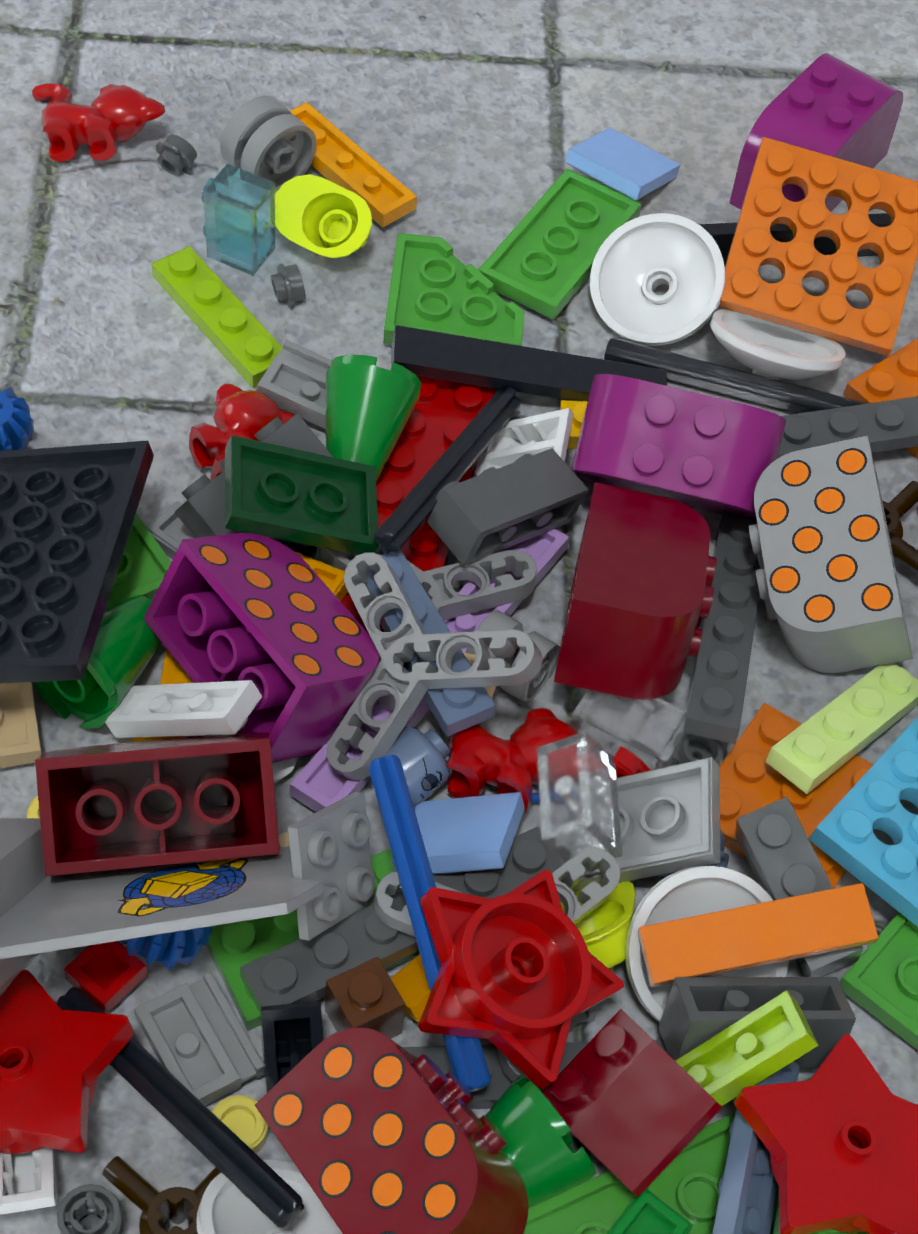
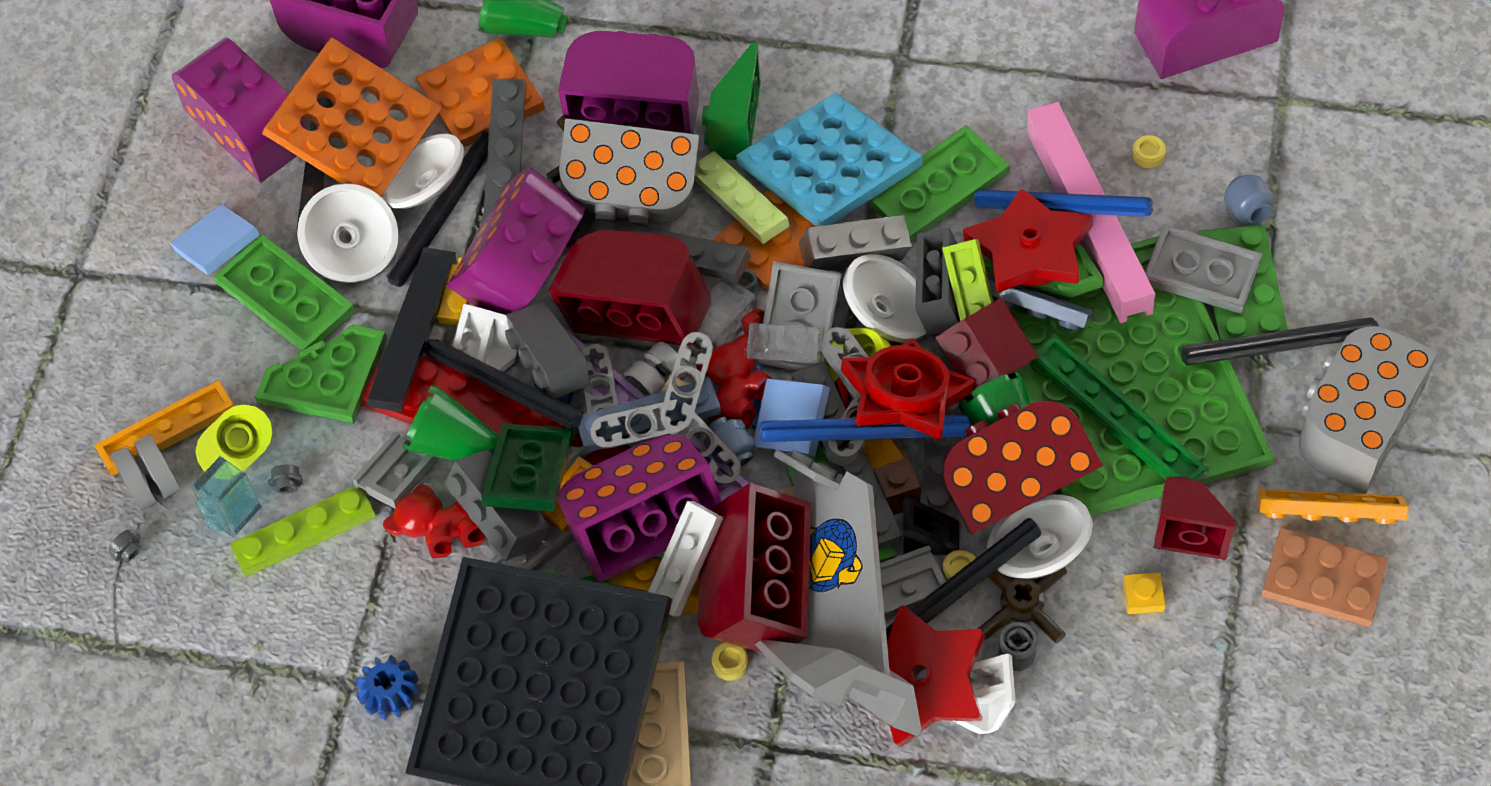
camera: 70 degrees left, 5 degrees up
(111, 118) = (75, 586): red animal -> none
(757, 934) = (893, 263): orange tile -> none

